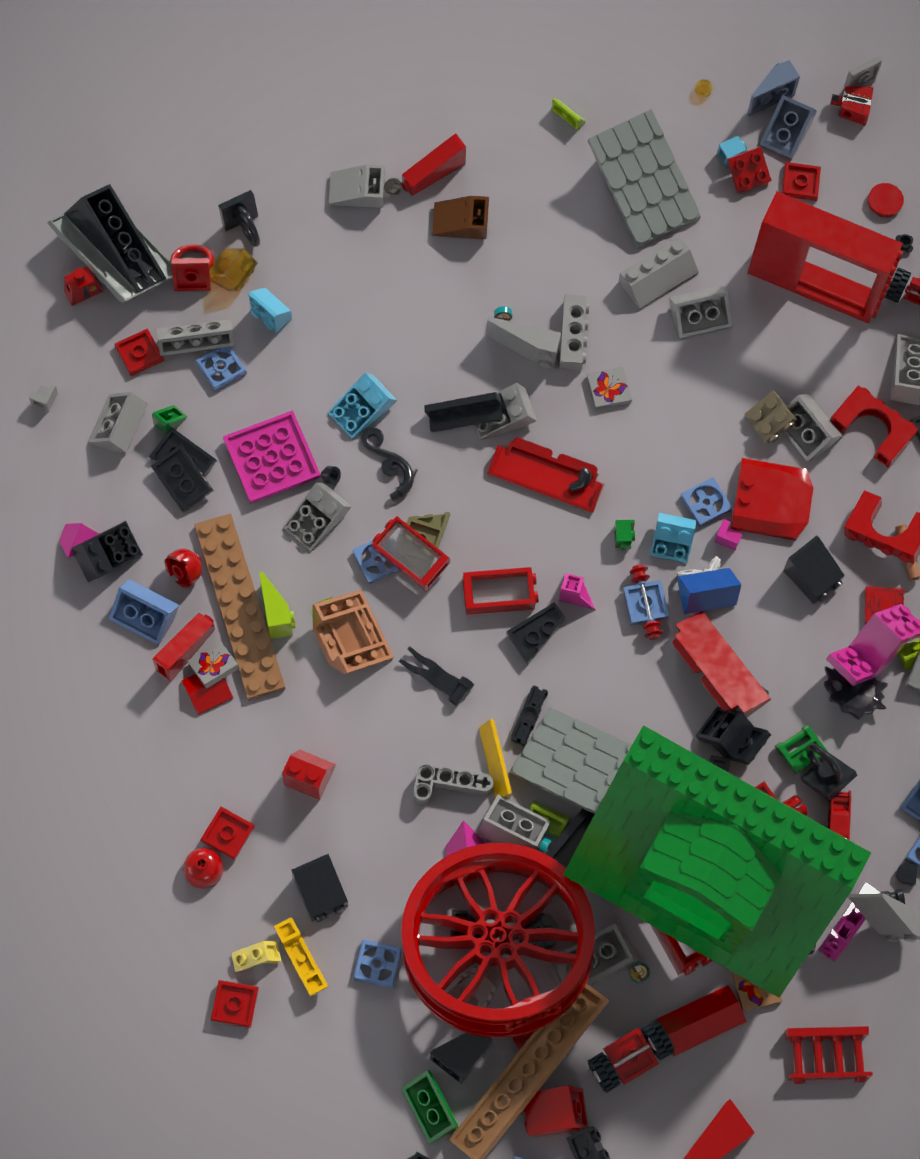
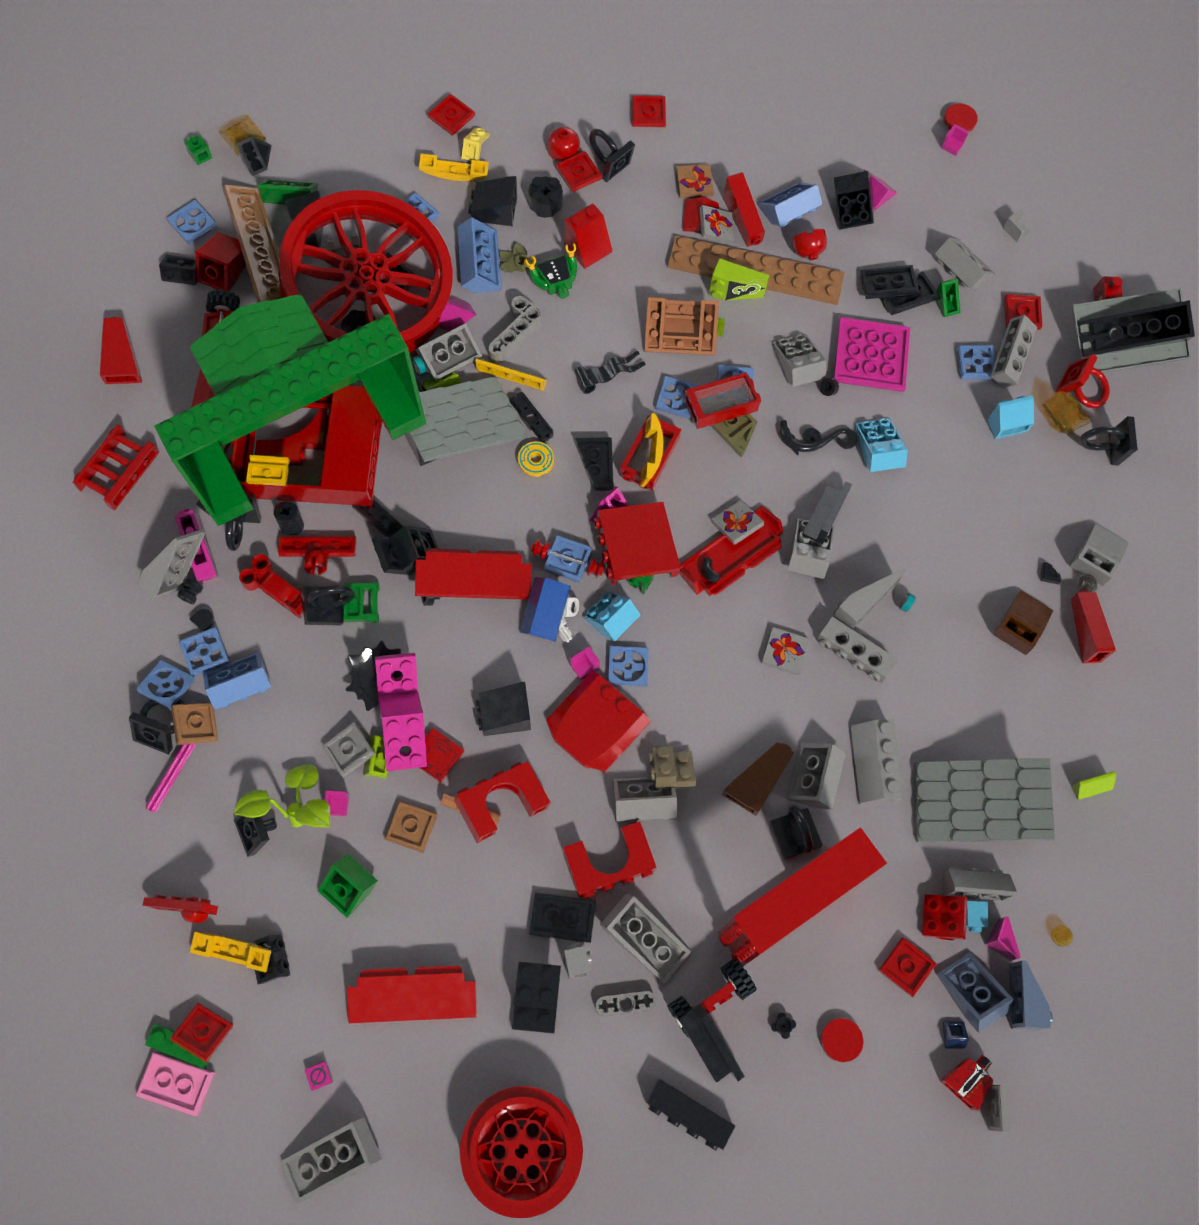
camera: 120 degrees right, 0 degrees up
(106, 810) = (648, 111): none -> red tile
(168, 717) = (695, 181): none -> medium nougat tile
(198, 797) = (617, 158): none -> black tile
(277, 854) = (545, 196): none -> black brick
(364, 781) = (554, 274): none -> torso
(369, 836) = (512, 260): none -> olive plate
(391, 866) = (479, 257): none -> medium blue slope
(400, 220) = (1049, 574): none -> black tile
(415, 618) = (661, 406): none -> medium blue piece
(519, 482) = (737, 522): none -> light grey tile
(529, 570) = (653, 431): none -> yellow slope
(570, 676) = (536, 449): none -> yellow tile
(597, 549) = (636, 541): none -> red panel
(709, 156) = (978, 884): none -> light grey slope
(734, 351) = (757, 781): none -> reddish brown slope
(736, 125) = (1003, 940): none -> dark pink slope
(756, 303) = (796, 832): none -> black tile
(826, 128) = (955, 1035): none -> dark blue slope

